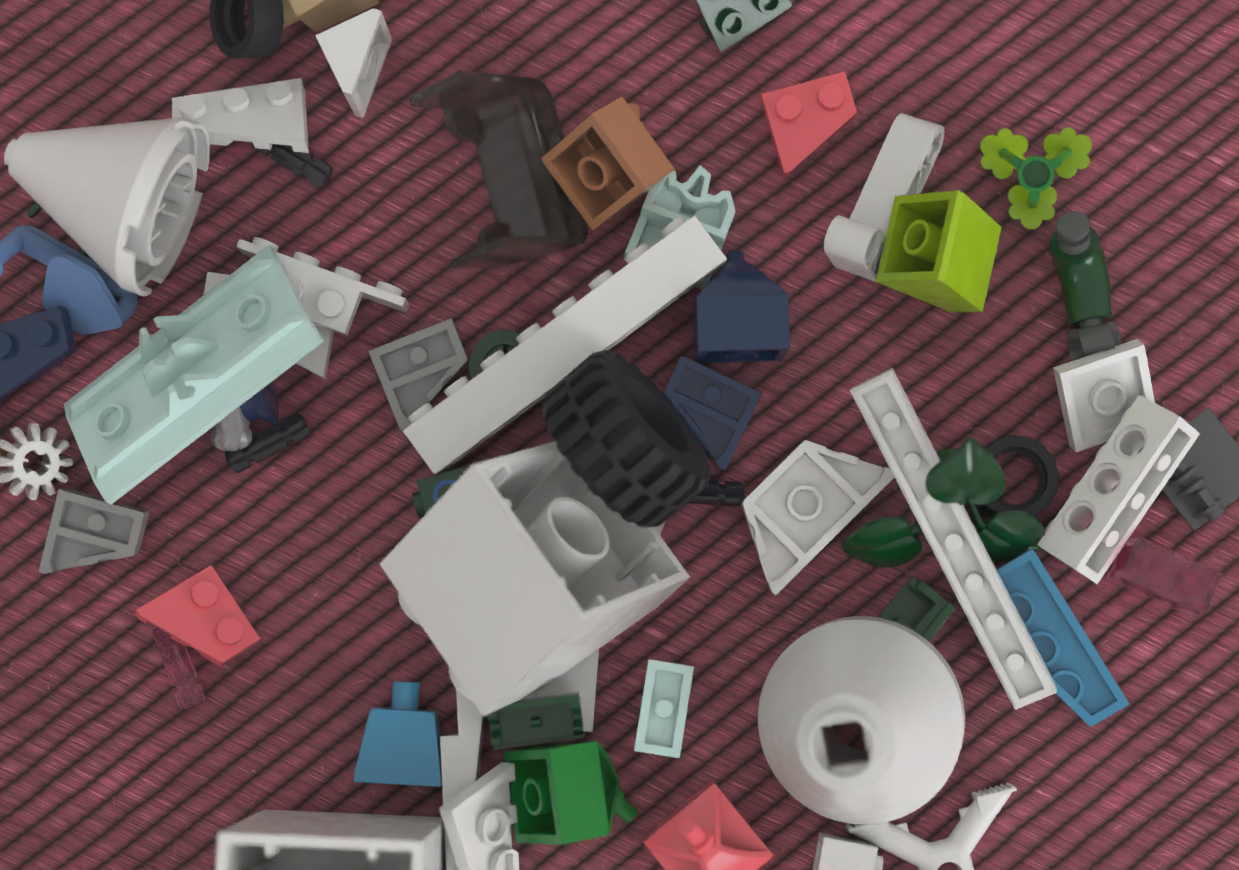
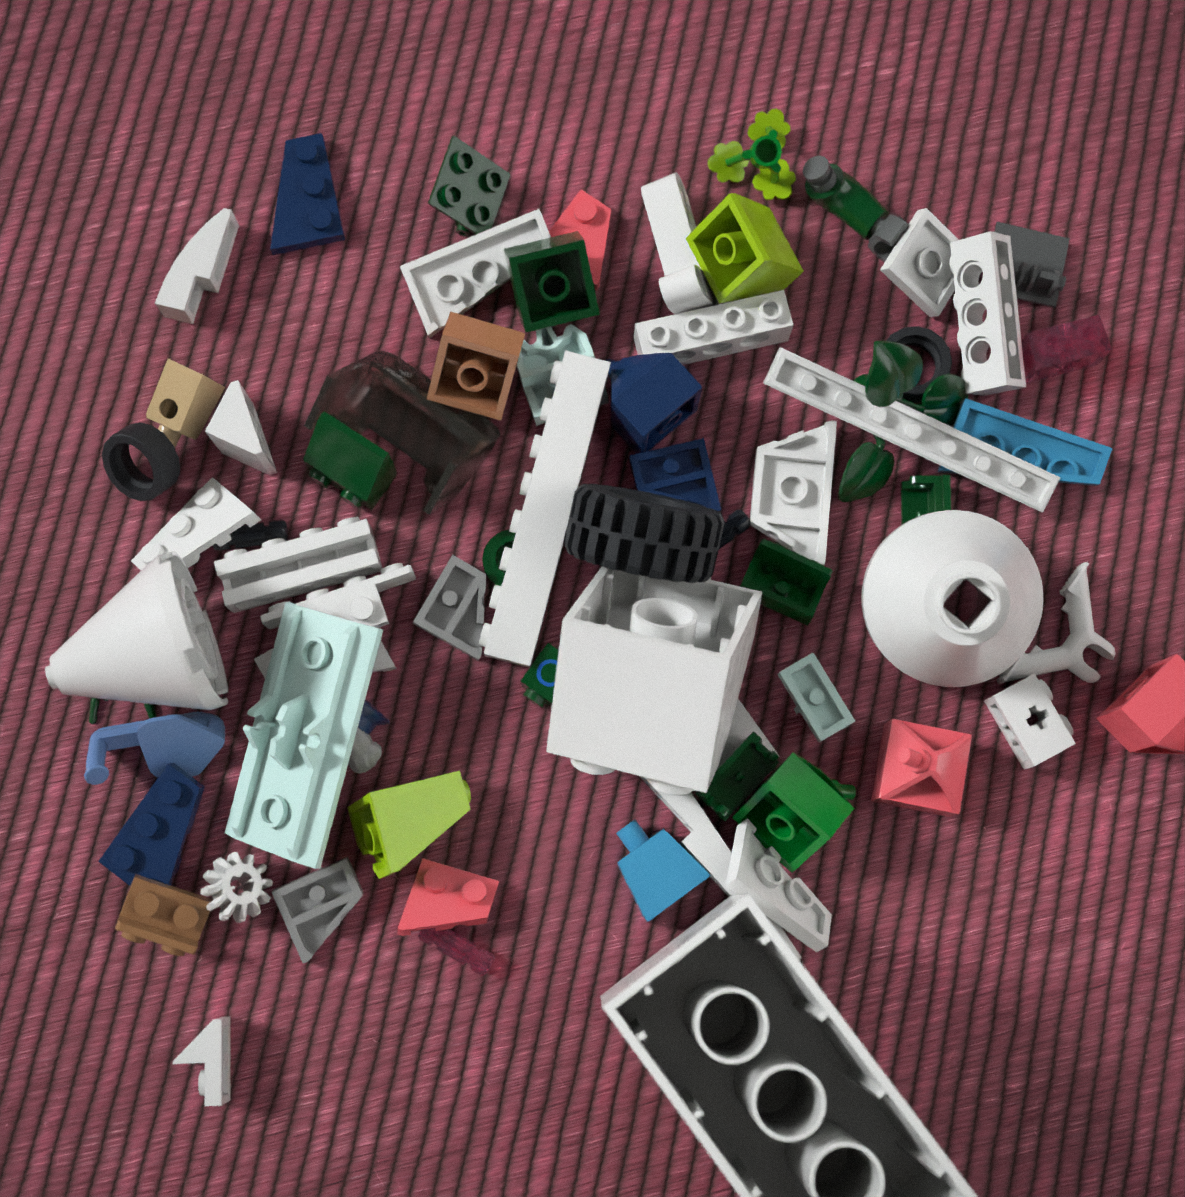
camera: 40 degrees left, 5 degrees down
(223, 524) = (407, 818): none -> lime slope
(269, 443) = (394, 742): black axle -> none
(312, 219) = (298, 565): none -> white brick
(425, 163) = (348, 463): none -> dark green slope
(678, 68) = (467, 270): none -> white wing
(726, 582) = (787, 581): none -> dark green bracket
(740, 138) = (552, 281): none -> dark green brick
(856, 302) = (717, 329): none -> white brick

